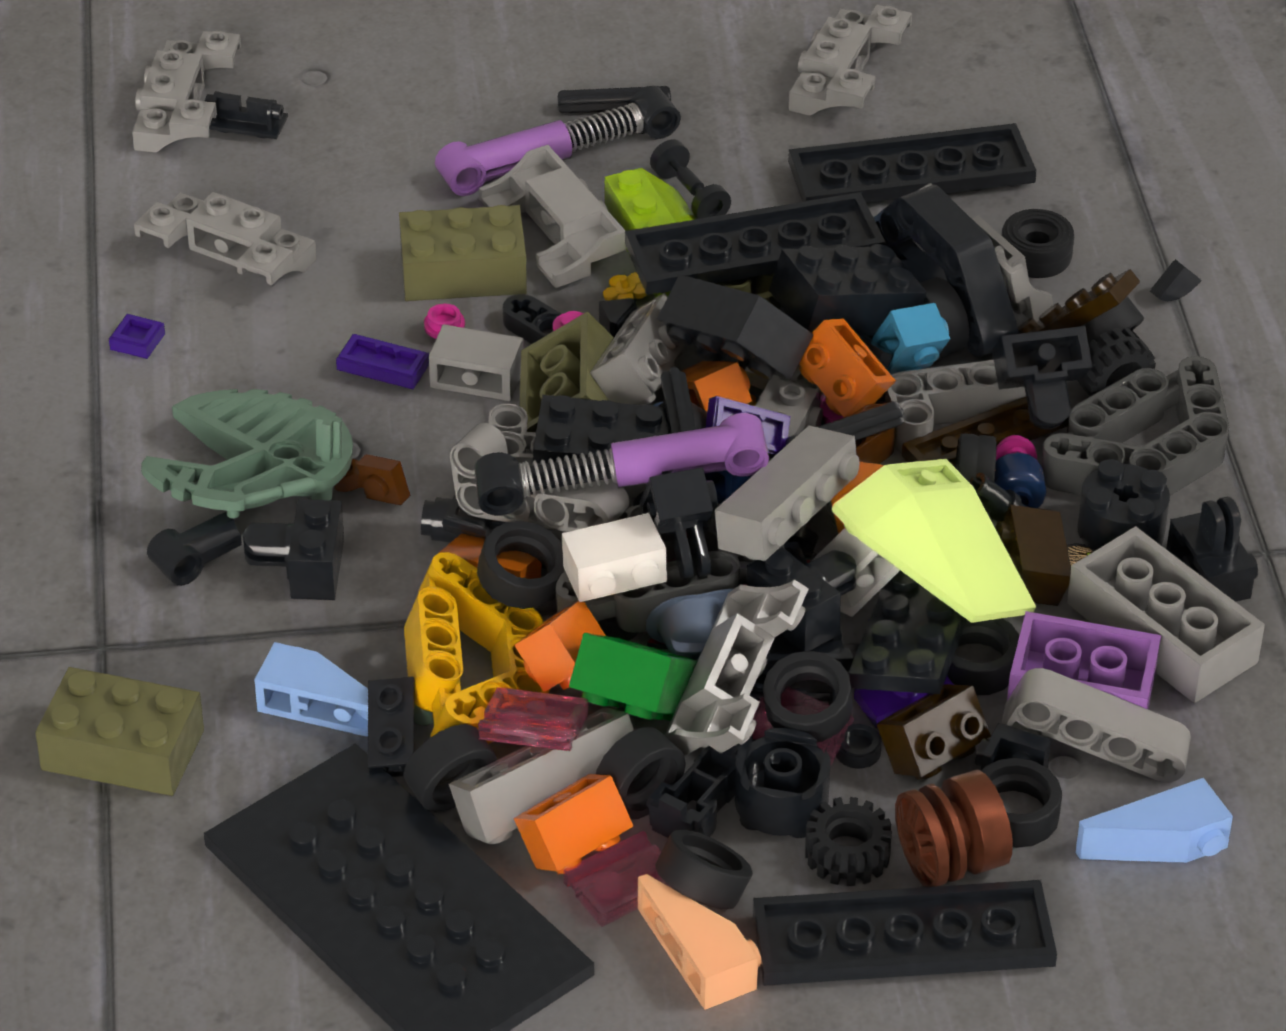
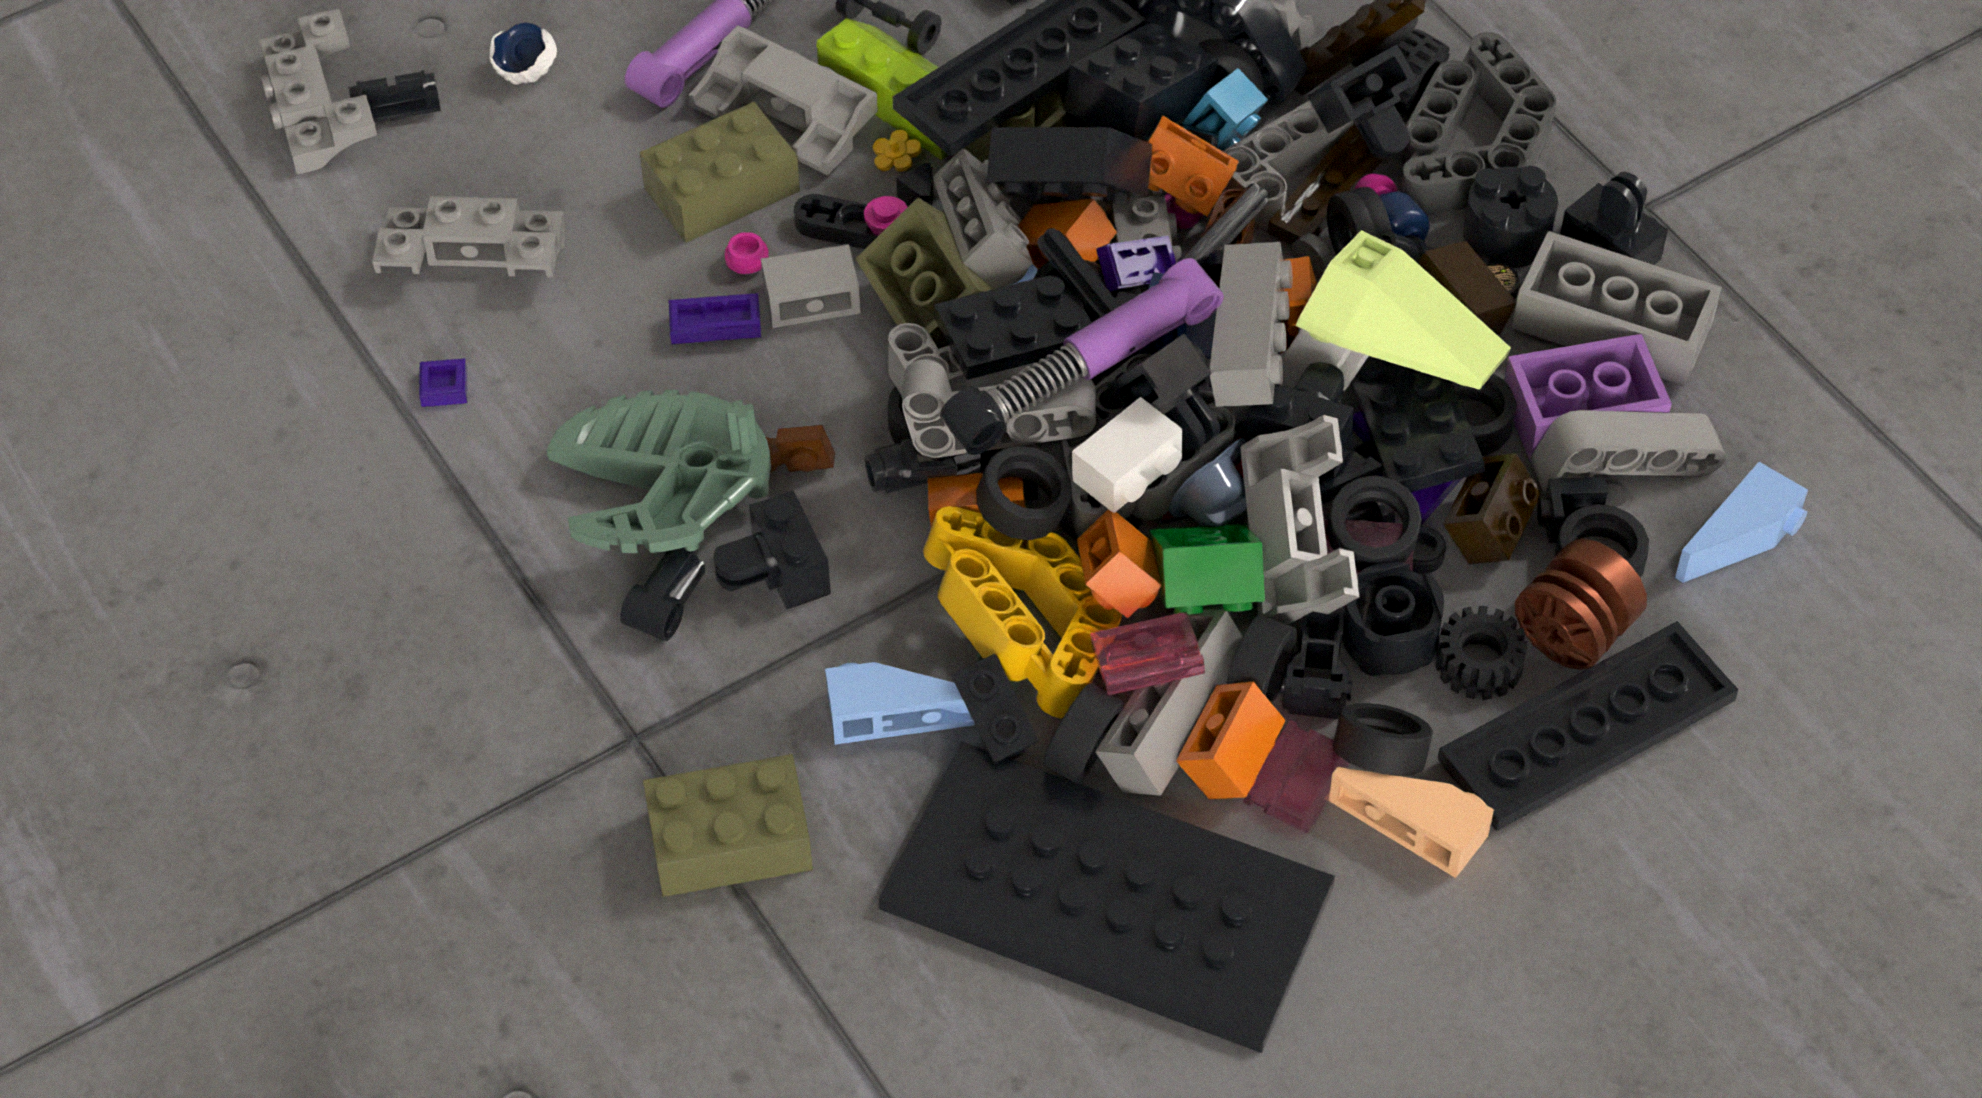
camera: 25 degrees left, 10 degrees up
(366, 115) = (522, 53): none -> dark blue hair

